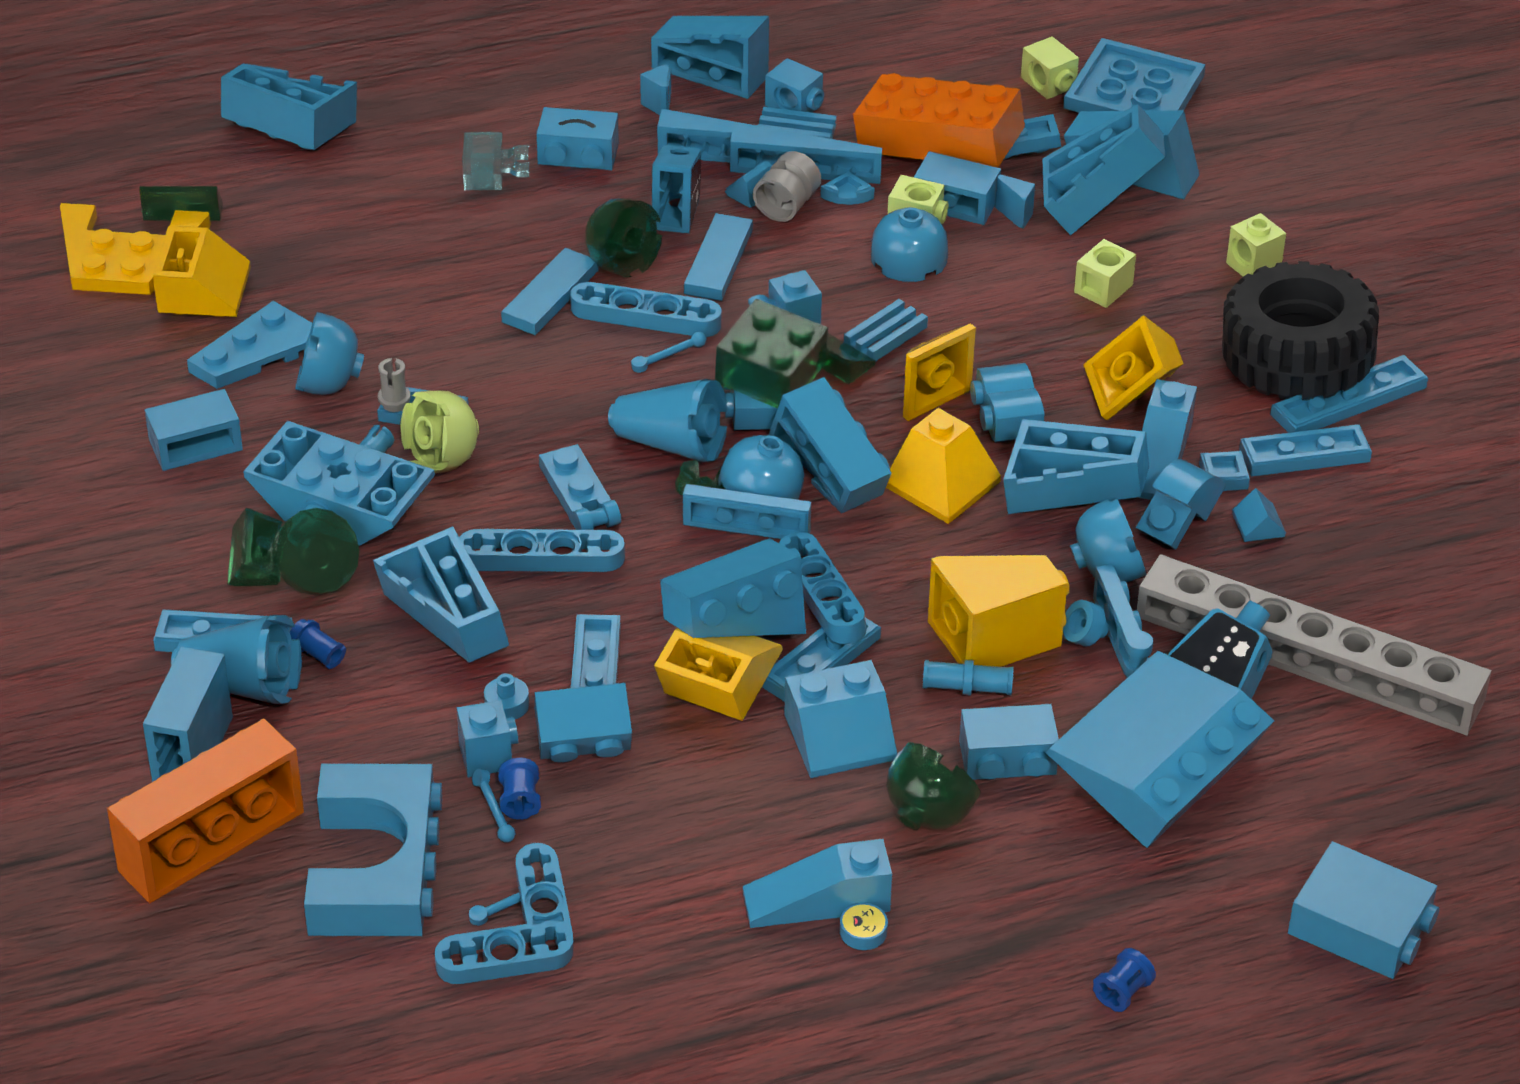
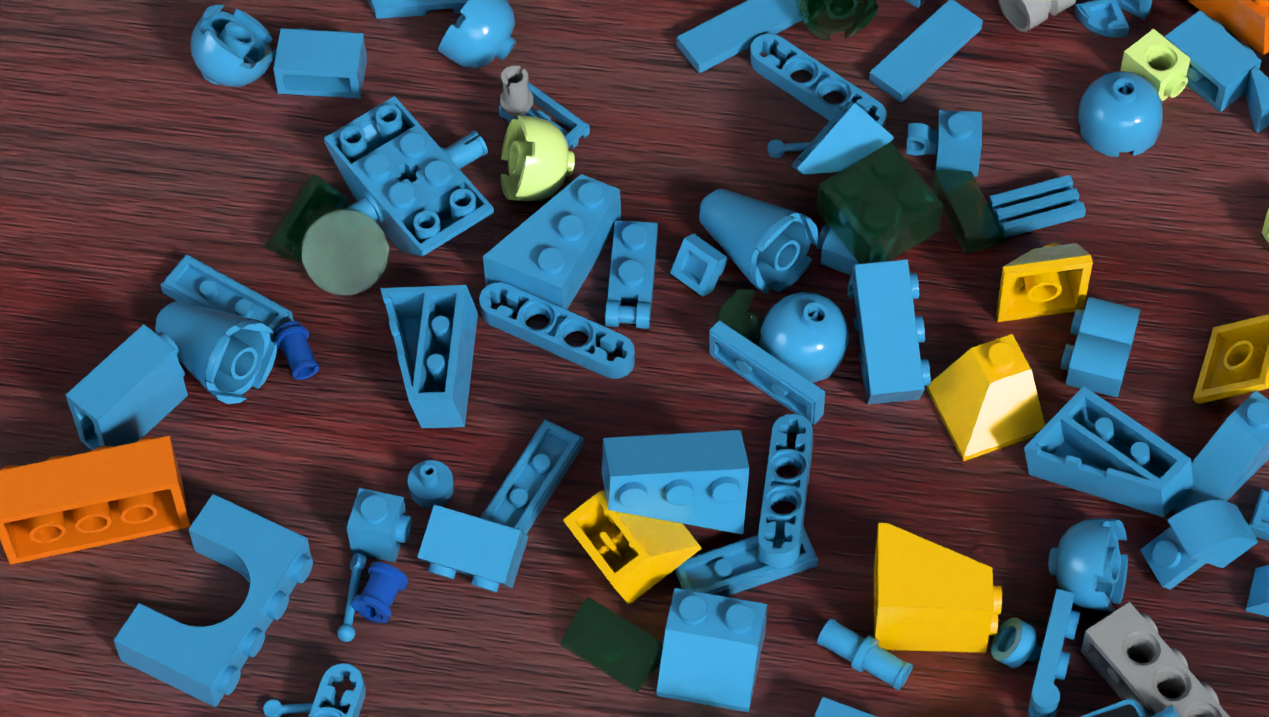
camera: 30 degrees right, 15 degrees up
(104, 442) = (231, 47): none -> dark azure cylinder
(501, 481) = (557, 243): none -> dark azure wedge
(635, 459) = (698, 265): none -> dark azure tile
(703, 325) = (842, 142): none -> dark azure slope
(751, 749) = (613, 645): none -> clear green slope

